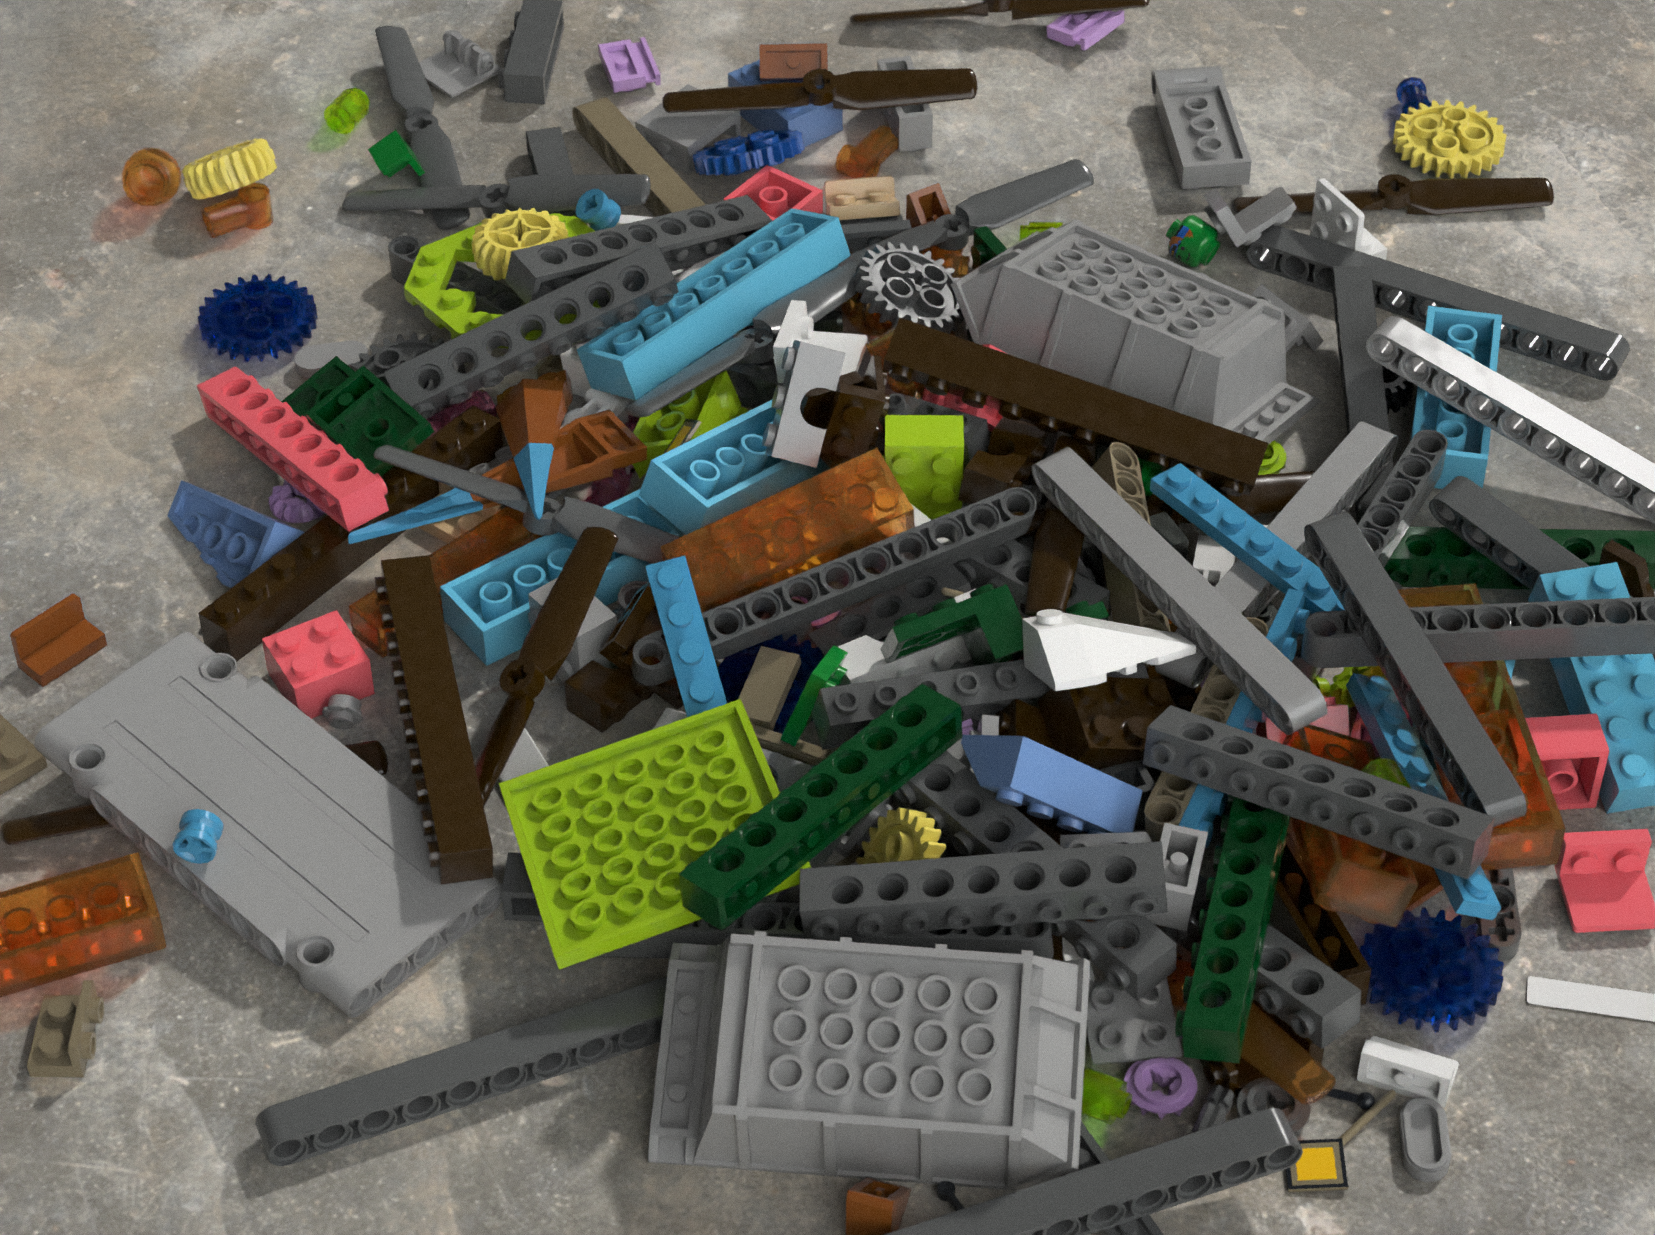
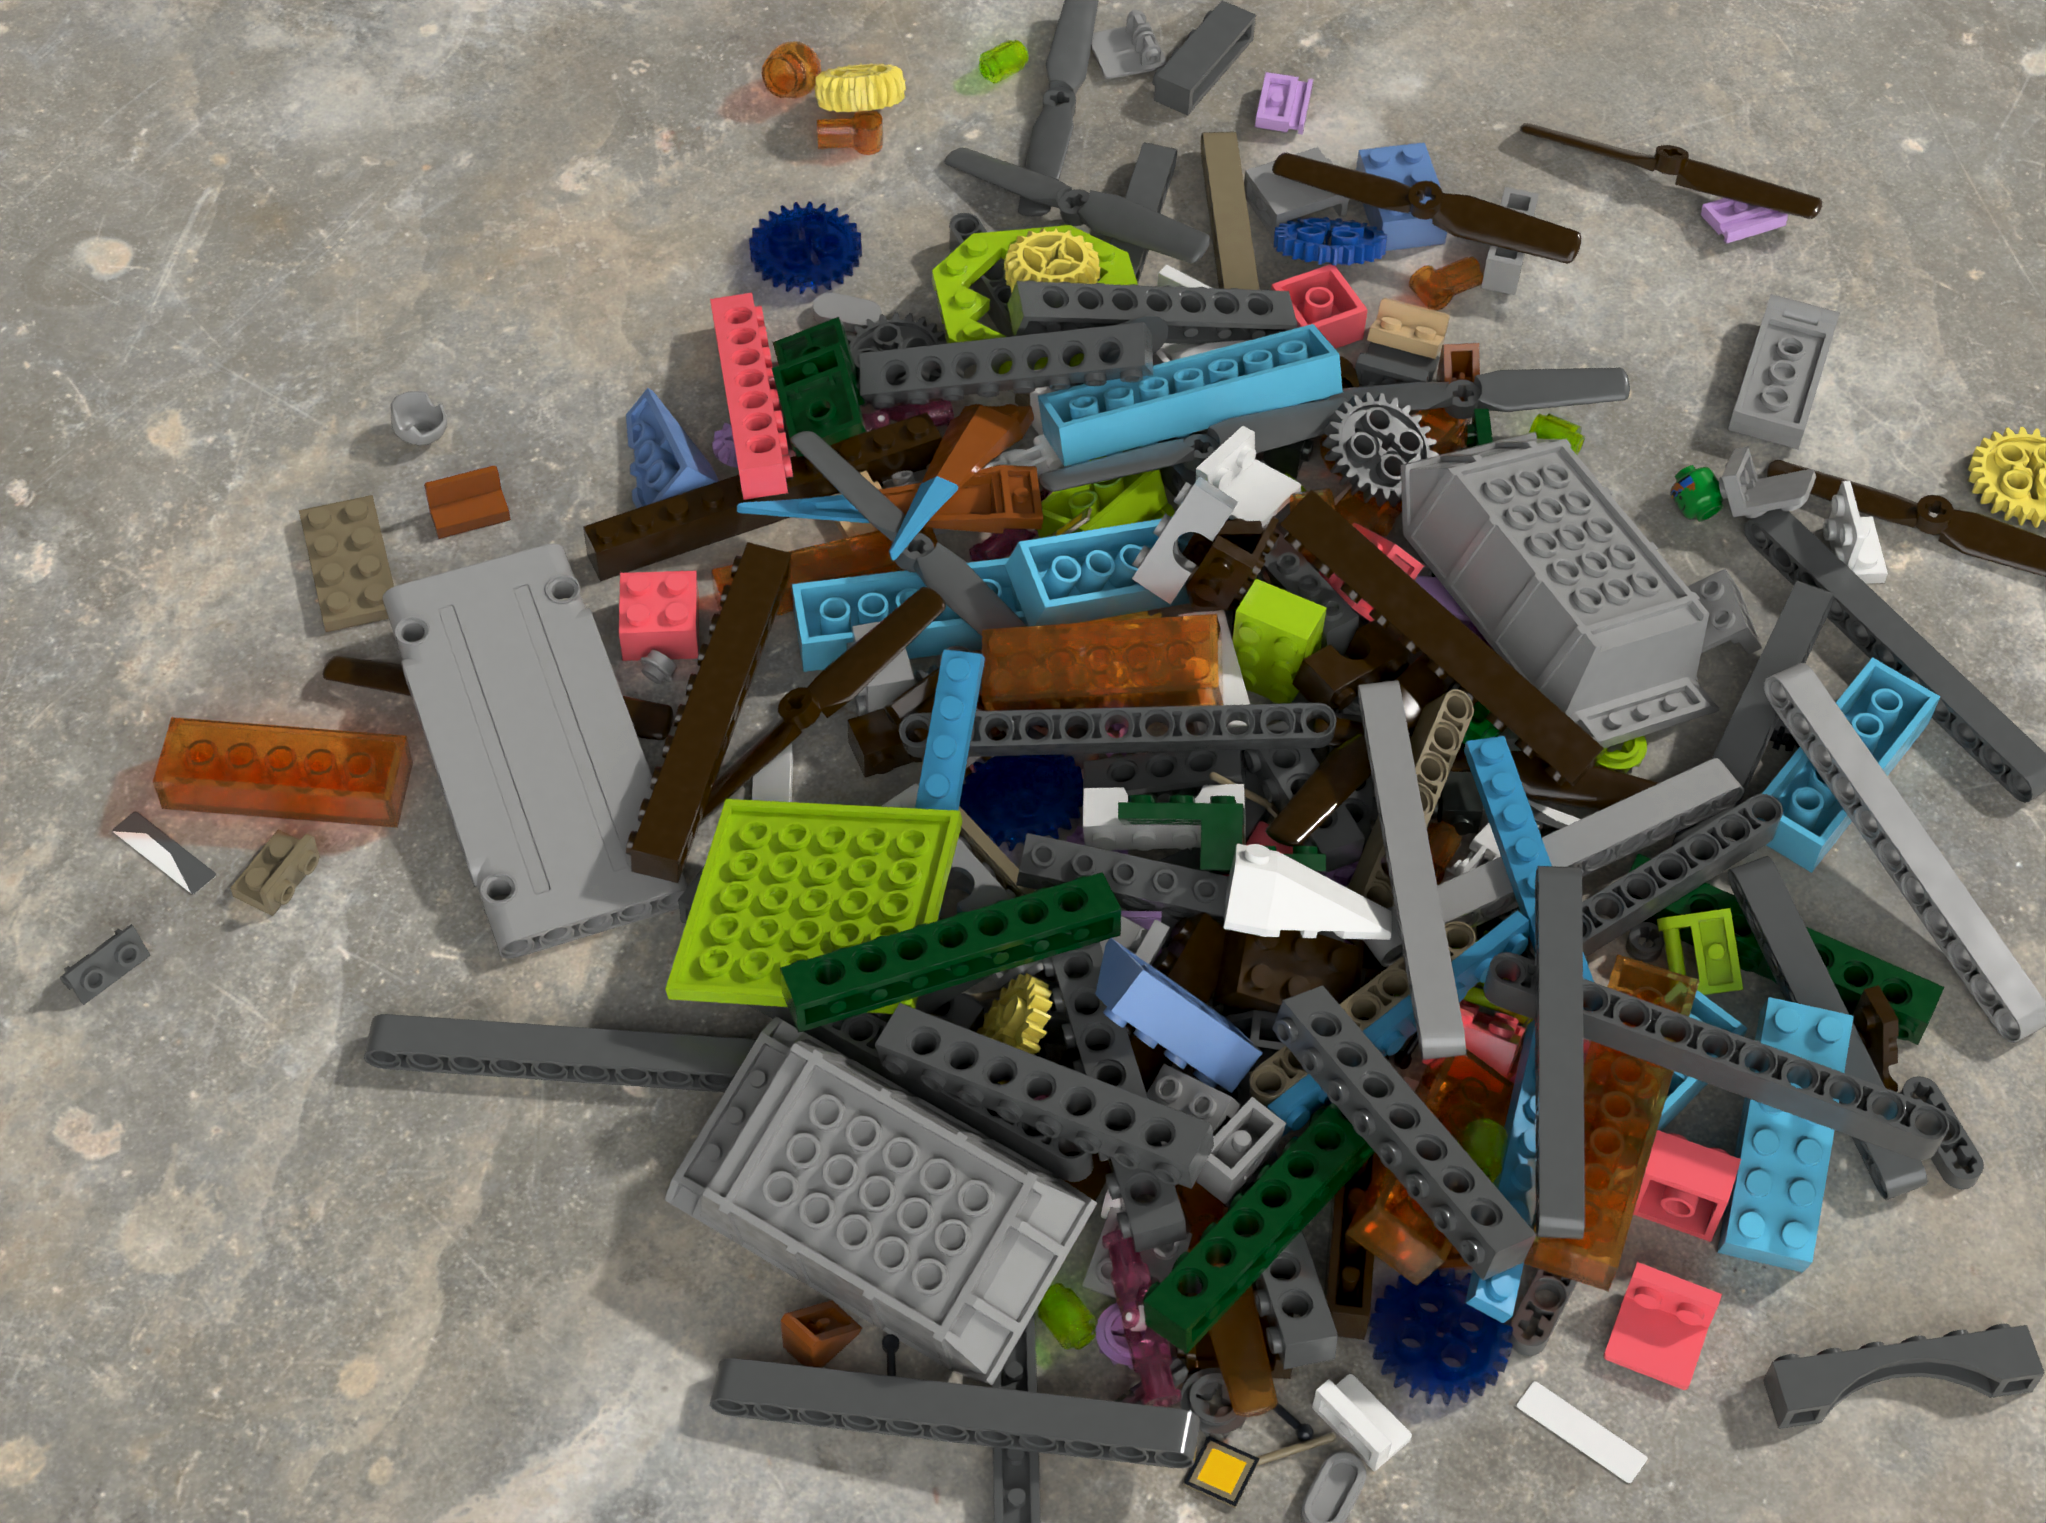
camera: 25 degrees right, 10 degrees up
(198, 836) = (454, 744): dark azure wheel -> none
(393, 155) = (1012, 124): green panel -> none
(598, 210) = (1147, 256): dark azure wheel -> none
(769, 685) = (1011, 801): dark tan tile -> none
(791, 60) = (1417, 162): dark orange panel -> none
(826, 674) = (1045, 822): green wing -> none
(1154, 1041) = (1152, 1353): none -> clear pink piece
(1408, 95) = (2019, 415): clear blue bush -> none
(1446, 564) = (1713, 946): none -> lime plate

